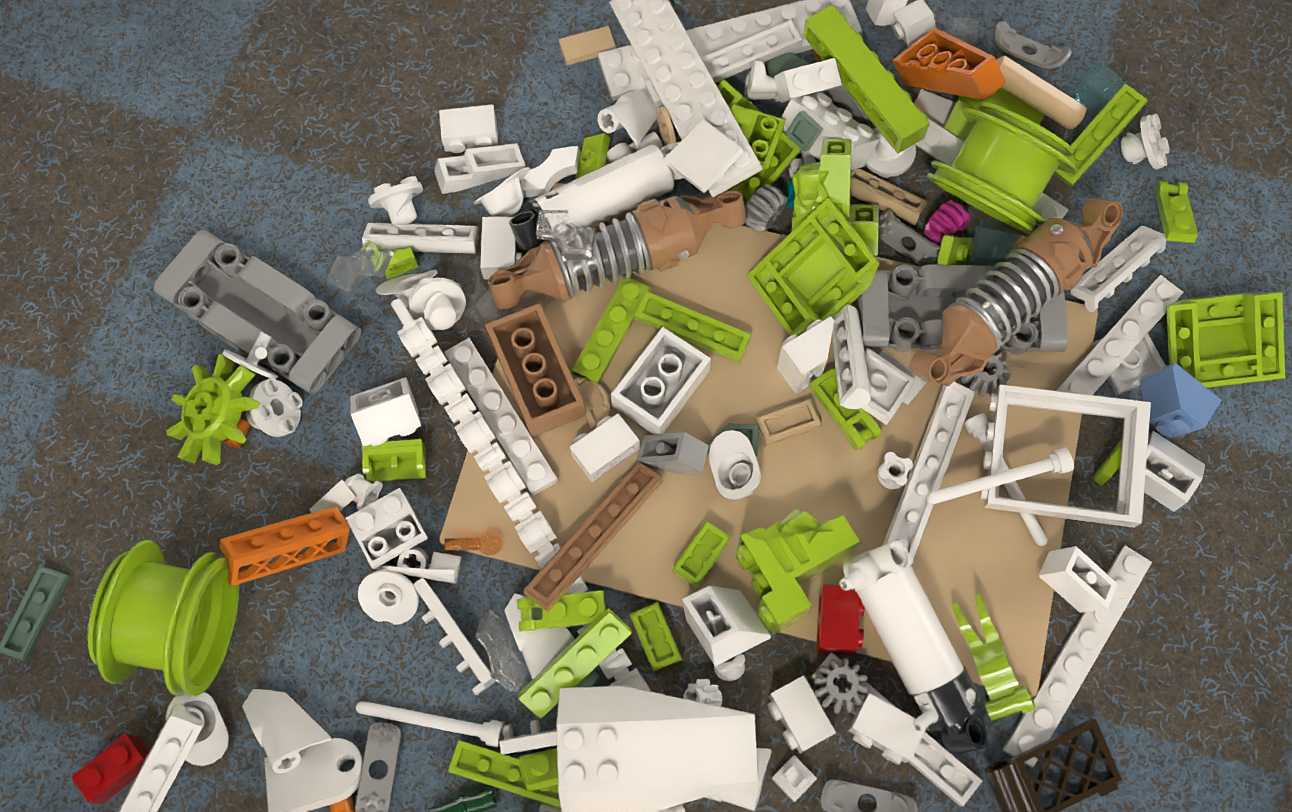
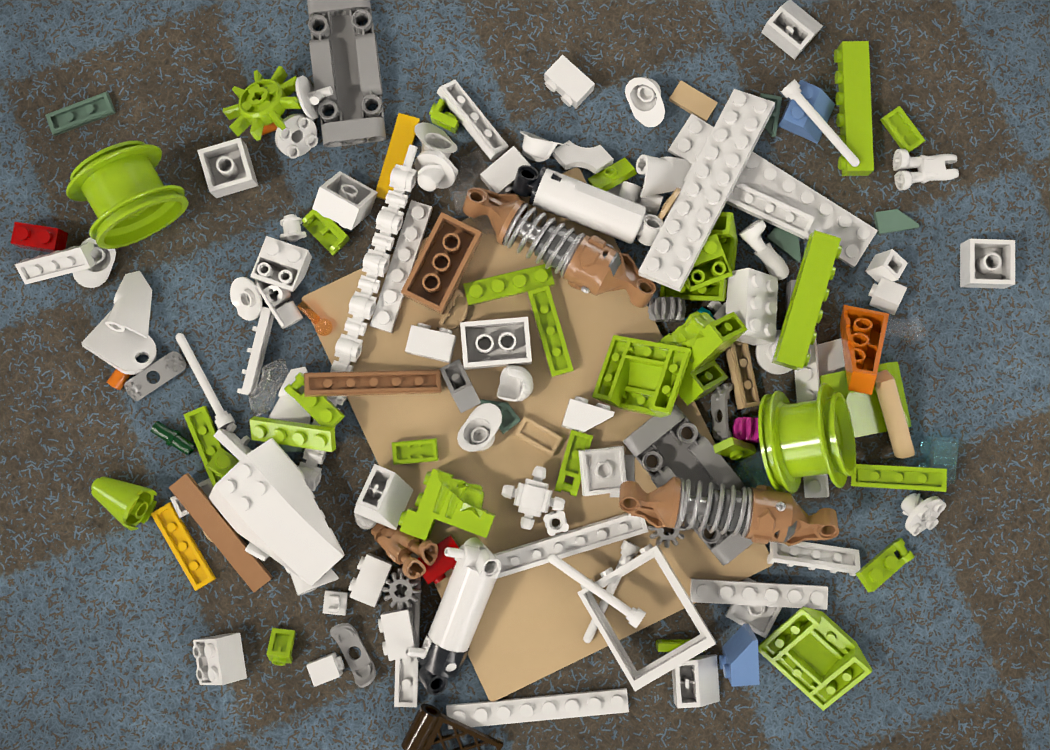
camera: 50 degrees right, 15 degrees up
(239, 499) = (227, 167): none -> white brick
(284, 539) = (222, 217): orange fence -> none
(338, 496) = (272, 218): white sticker -> none
(367, 262) = (428, 105): clear tile -> none
(384, 330) = (402, 137): none -> yellow tile
(397, 200) = (481, 86): white plate -> none
(478, 167) = (549, 111): white slope -> none
(550, 78) = (645, 101): none -> white piece
(573, 241) = (530, 221): clear tile -> none
(655, 637) = (349, 464): lime plate -> none
(703, 155) = (657, 248): white tile -> none
(704, 693) = (336, 518): white gear -> none
(717, 397) = (515, 384): none -> white hair
(790, 644) = (400, 546): none -> medium nougat piece
(804, 131) = (734, 293): sand green tile -> none
(807, 80) = (775, 266): white brick -> none
(850, 359) = (602, 442): white brick -> none
(850, 472) = (533, 497): none -> white piece
(993, 666) = (485, 666): lime flag -> none
(1045, 56) = (931, 368): light grey piece -> none
(1078, 579) = (577, 677): white brick -> none

